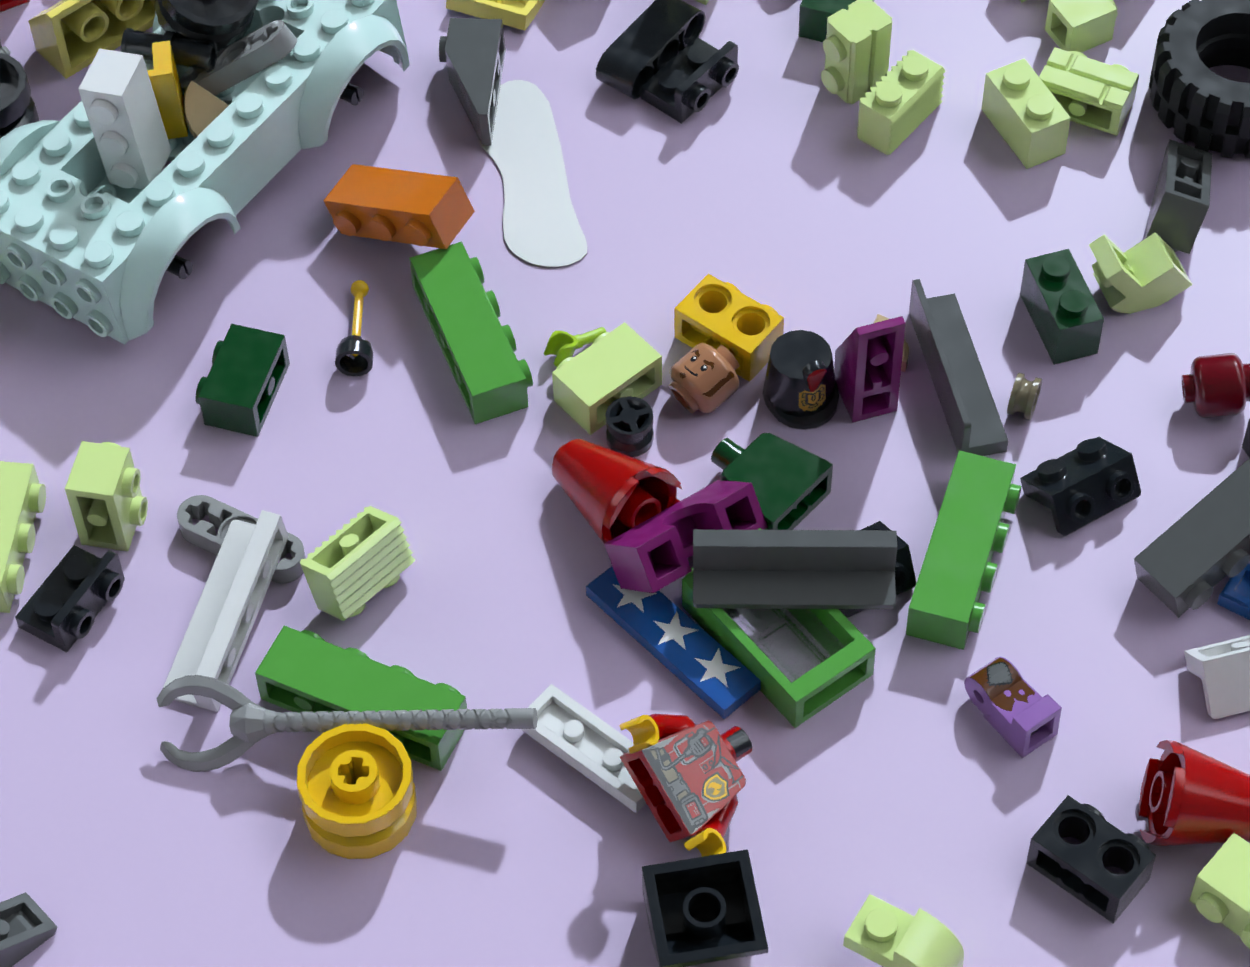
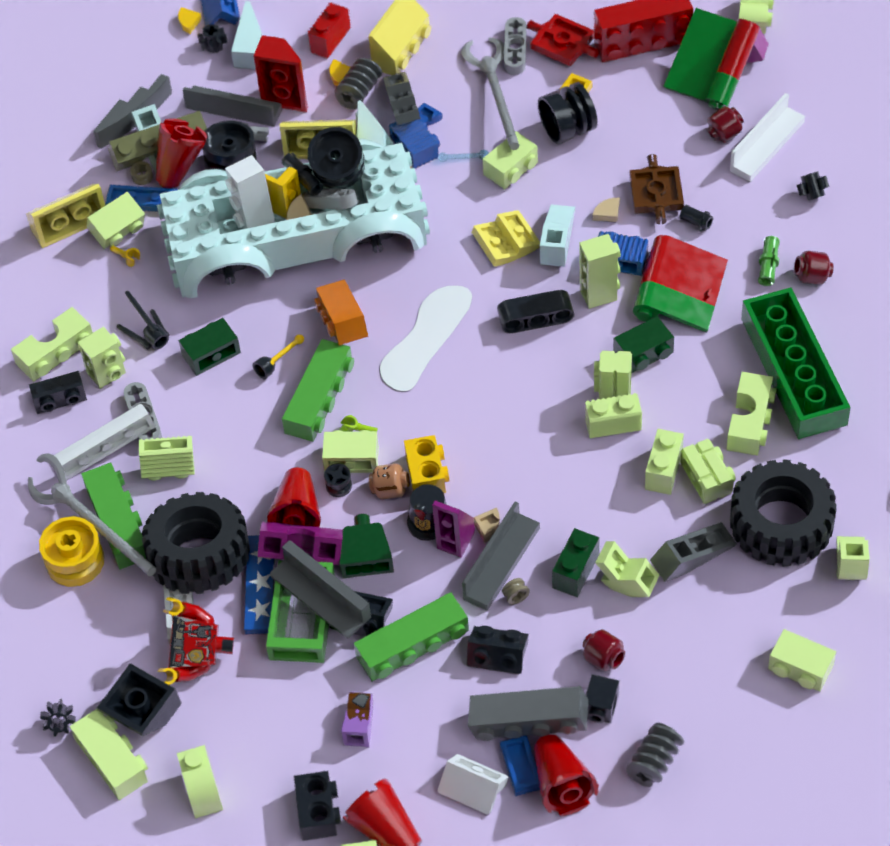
camera: 45 degrees right, 0 degrees up
(137, 418) = (154, 334): none -> black plant
(475, 69) = (448, 269): dark grey slope -> none
(538, 591) = (201, 566): none -> black tyre
(691, 79) = (538, 340): black bracket -> none

